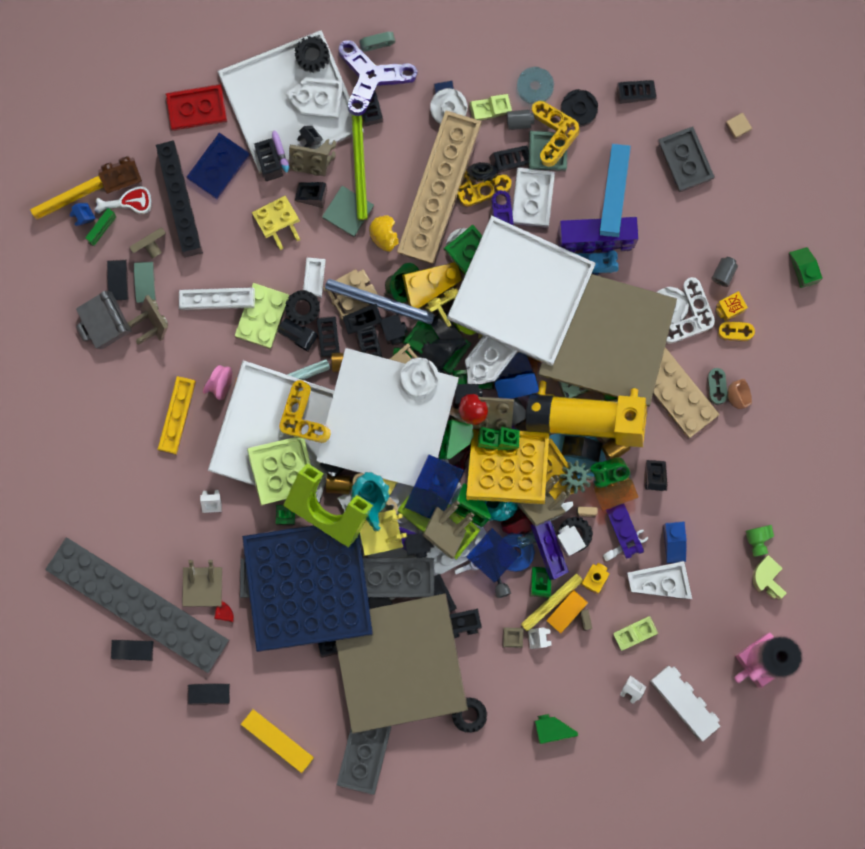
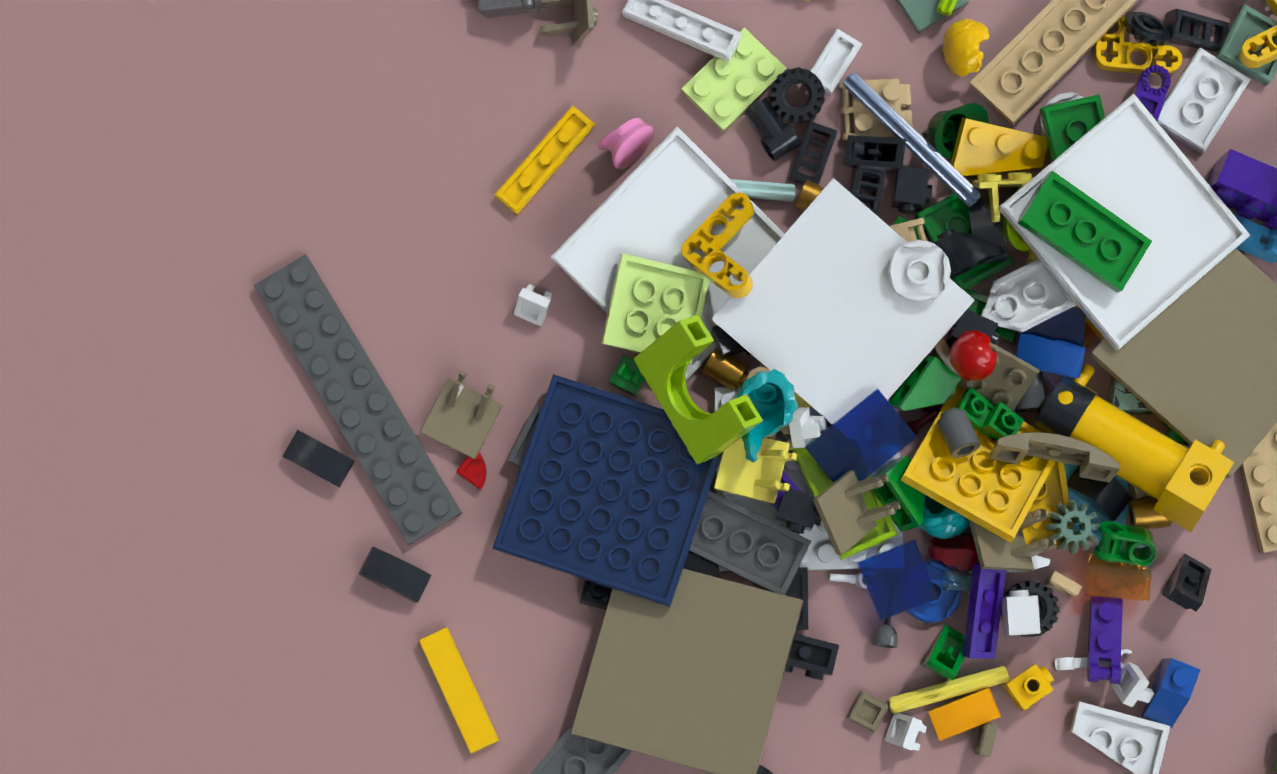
camera: 25 degrees right, 0 degrees up
(399, 495) = (805, 427): none -> white tile
(485, 456) = (958, 433): none -> dark grey brick
(501, 308) = (1084, 231): none -> green plate
(545, 437) = (1092, 461): none -> dark tan slope
(652, 549) = (1133, 686): none -> white tile

